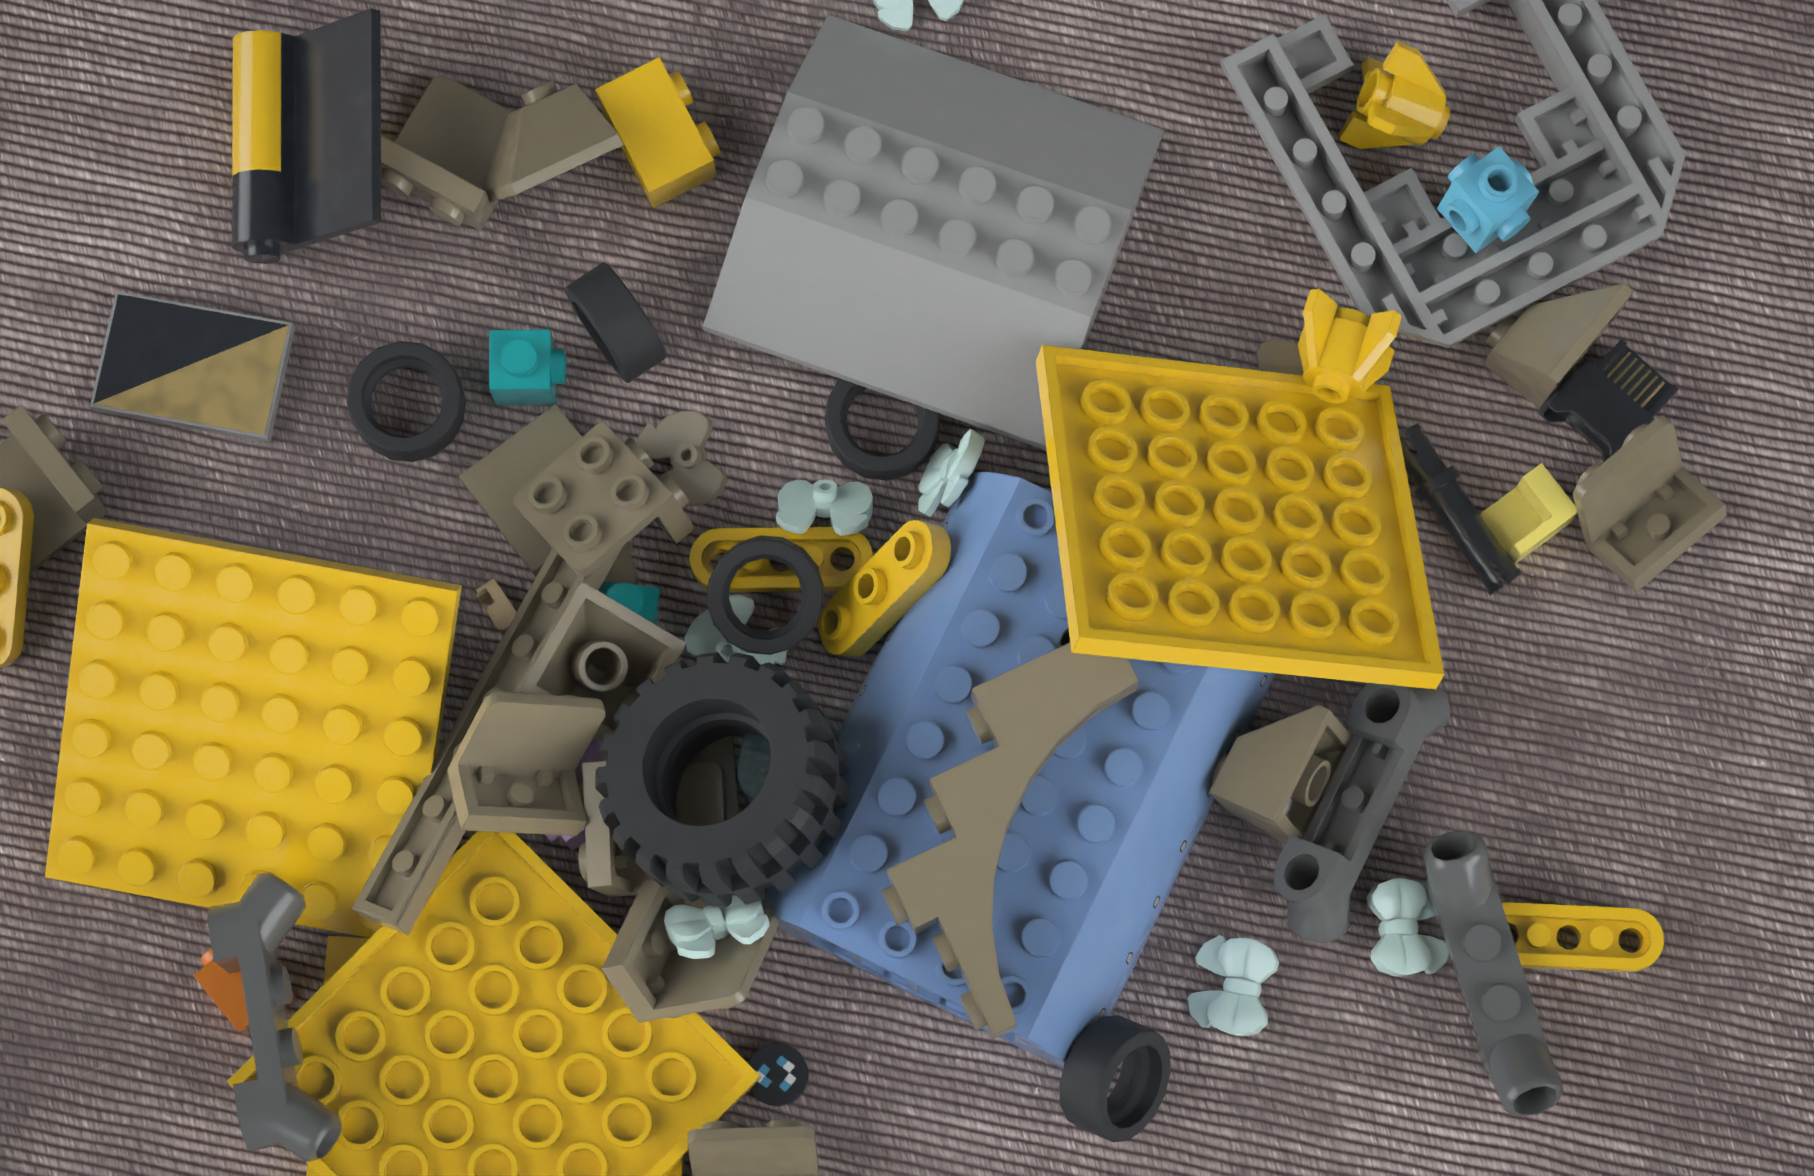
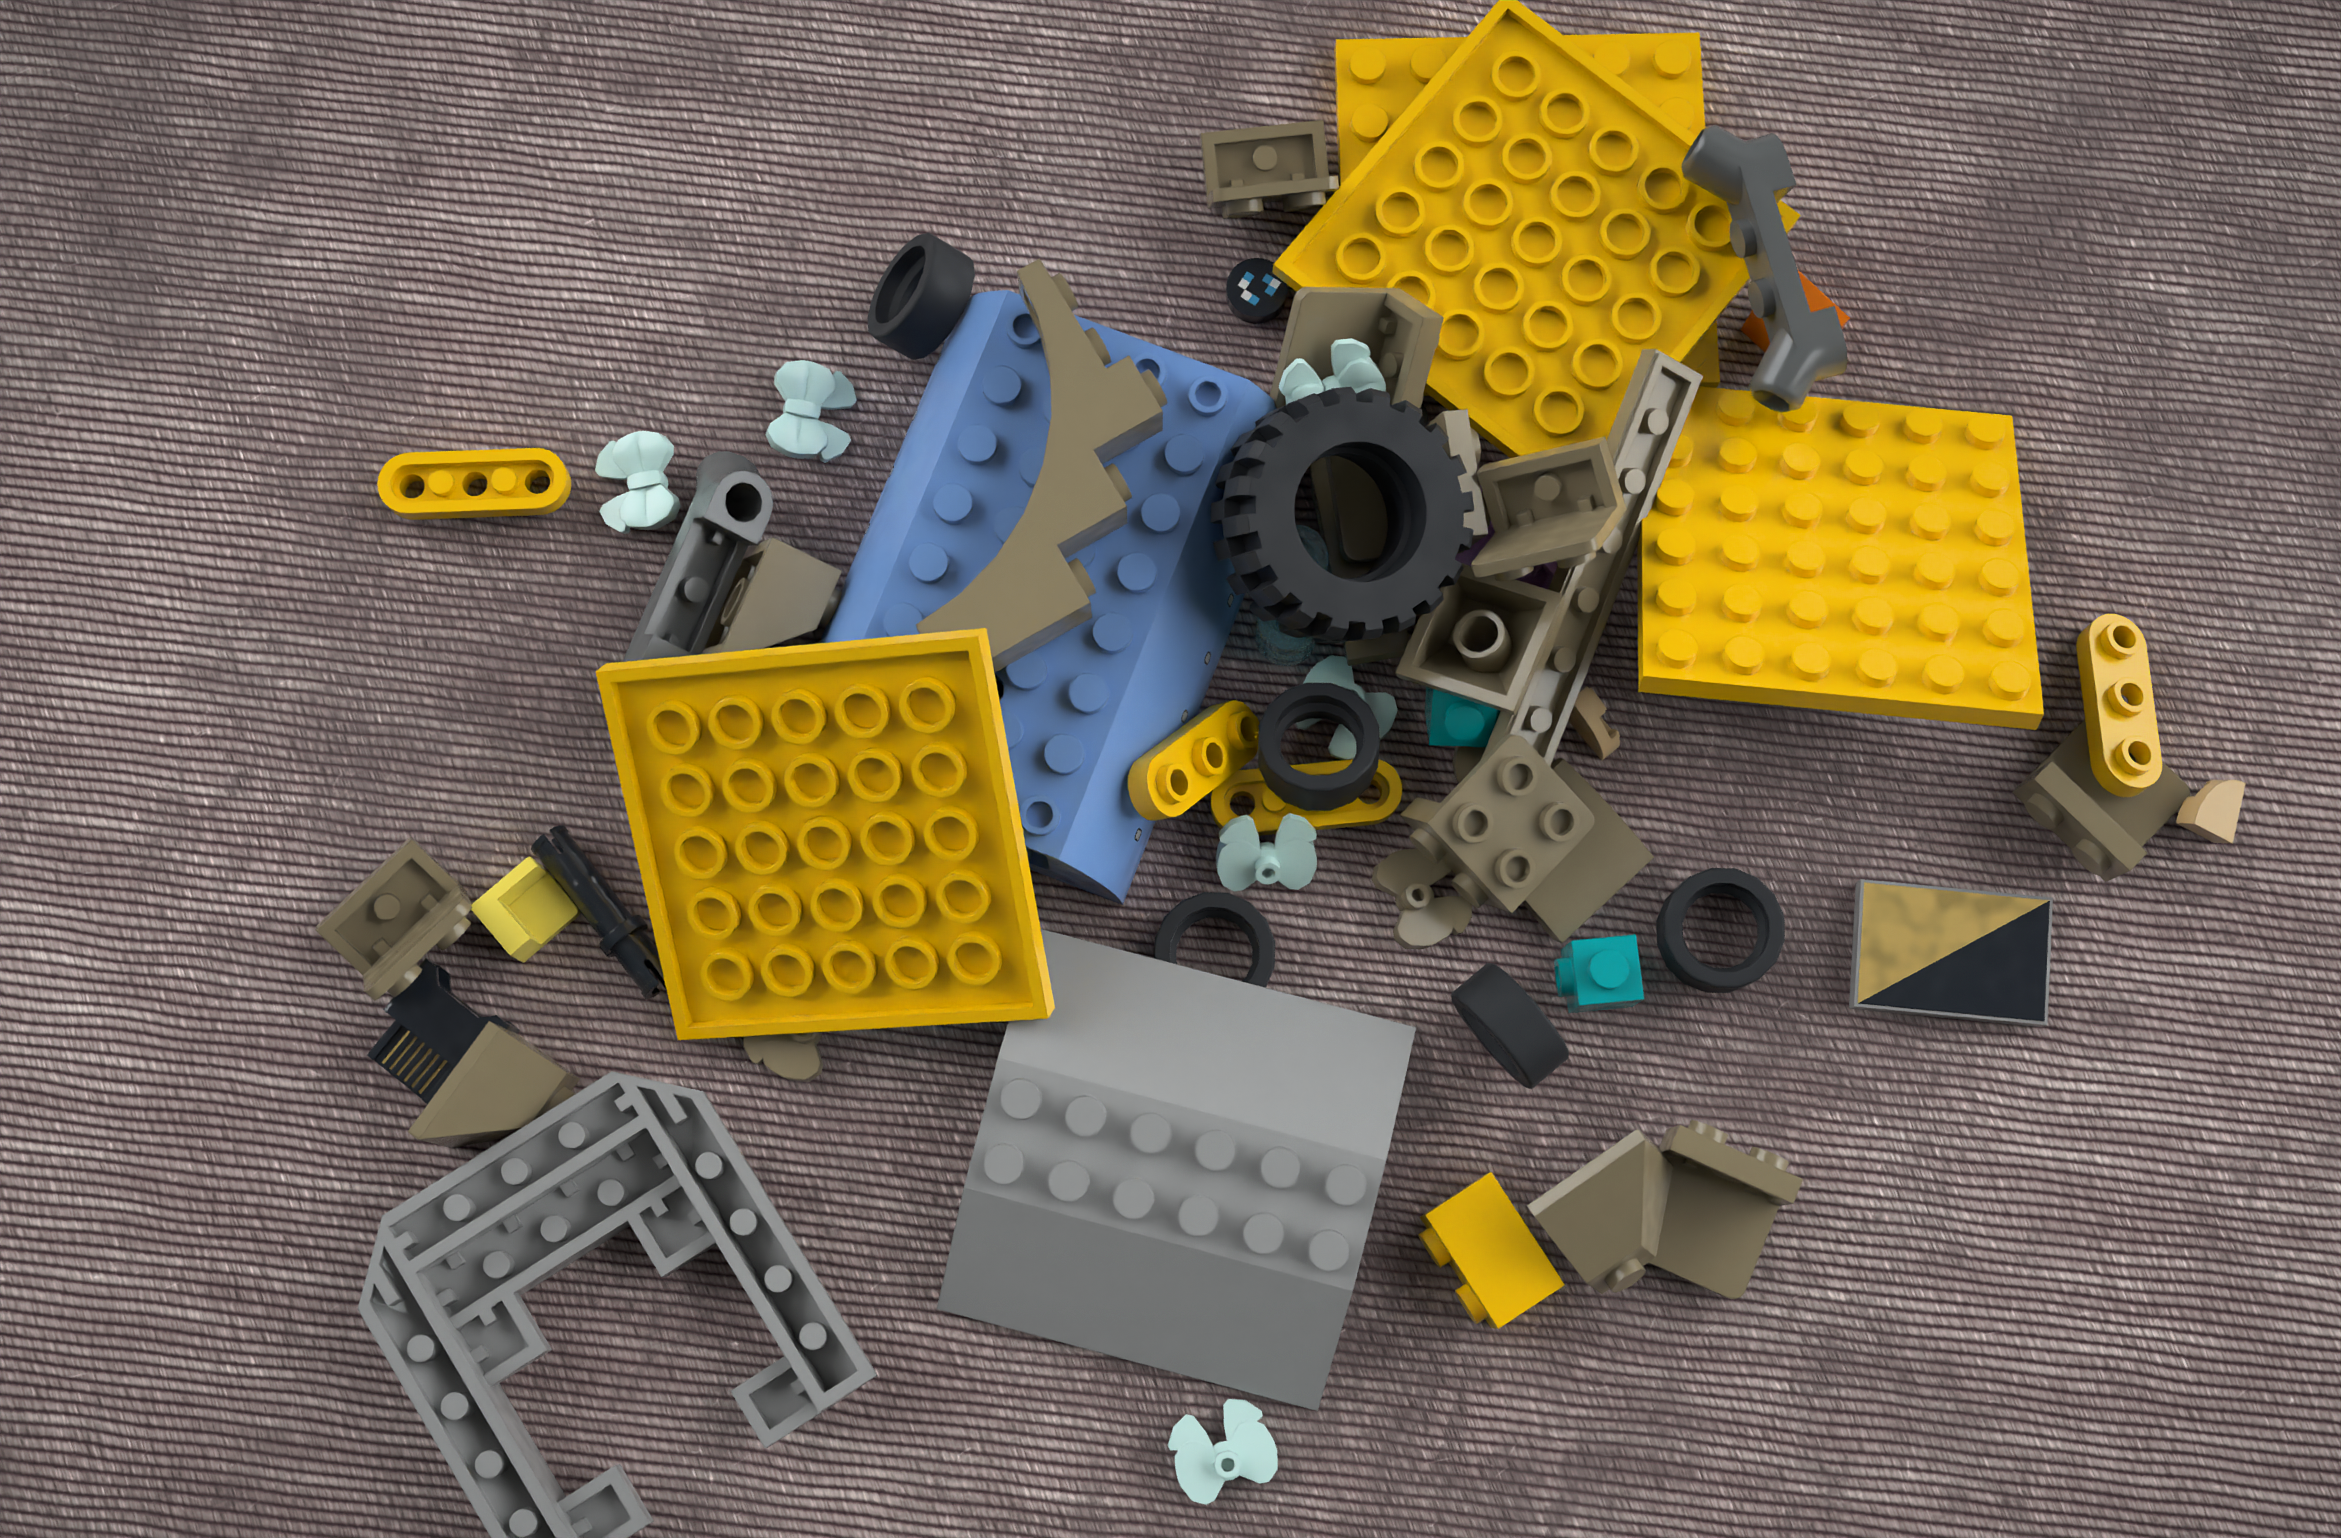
camera: 170 degrees right, 0 degrees up
(305, 135) = (1874, 1206): black door -> none
(949, 472) = (1138, 900): light aqua piece -> none
(1344, 347) = (725, 1056): yellow brick -> none
(1399, 102) = (681, 1353): yellow brick -> none
(1488, 198) = (592, 1230): medium azure brick -> none
(1490, 973) = (548, 426): dark grey plate -> none

